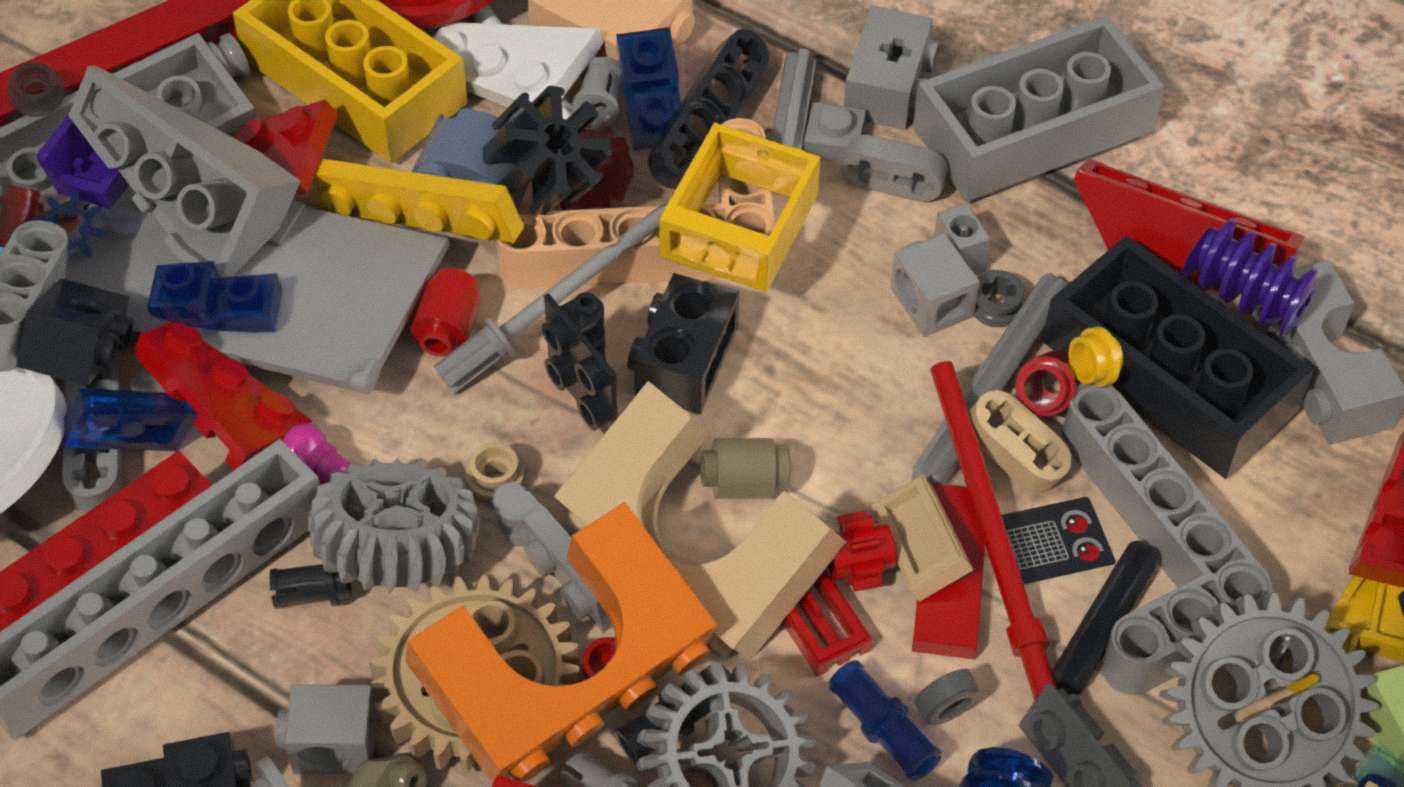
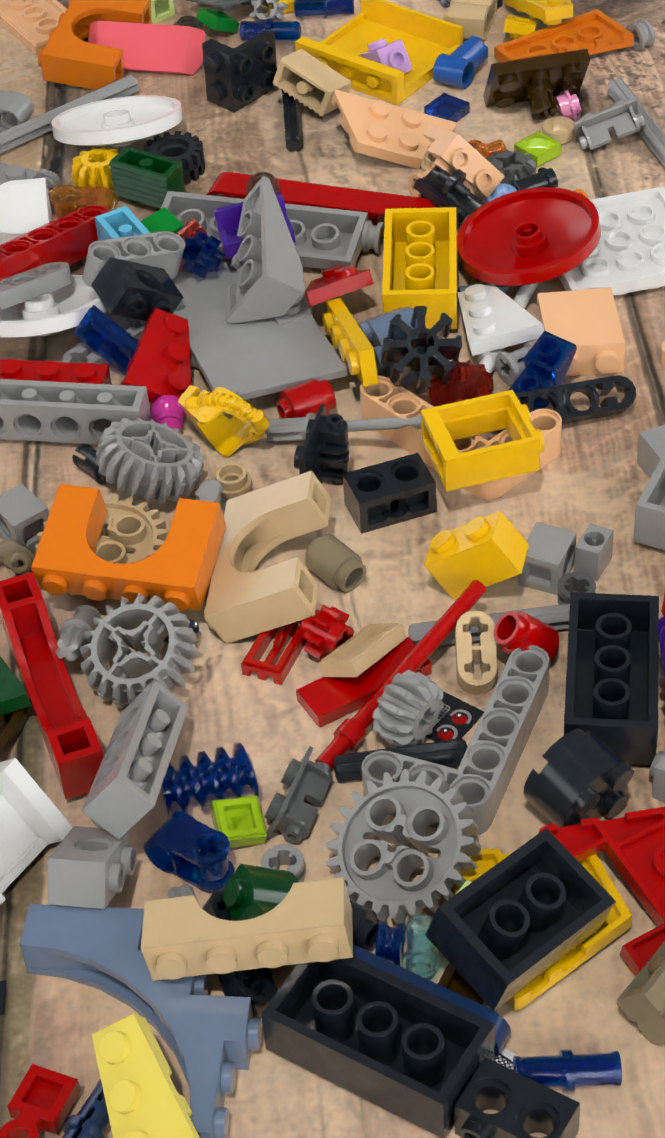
camera: 55 degrees right, 10 degrees down
(204, 300) = (210, 321): clear blue slope -> none
(400, 405) = (224, 434): none -> yellow piece
(794, 99) = (603, 439): light grey axle -> none
(831, 130) = (615, 463): light grey plate -> none
(885, 720) = (233, 708): clear blue pin -> none
(894, 168) = (613, 495): light grey beam -> none
(896, 336) = (480, 550): none -> yellow brick
(948, 697) = (272, 721): dark grey tile -> none
(1066, 557) = (408, 709): none -> light grey gear
(1096, 357) = (549, 632): yellow plate -> none
(1311, 487) = (579, 780): none -> black brick

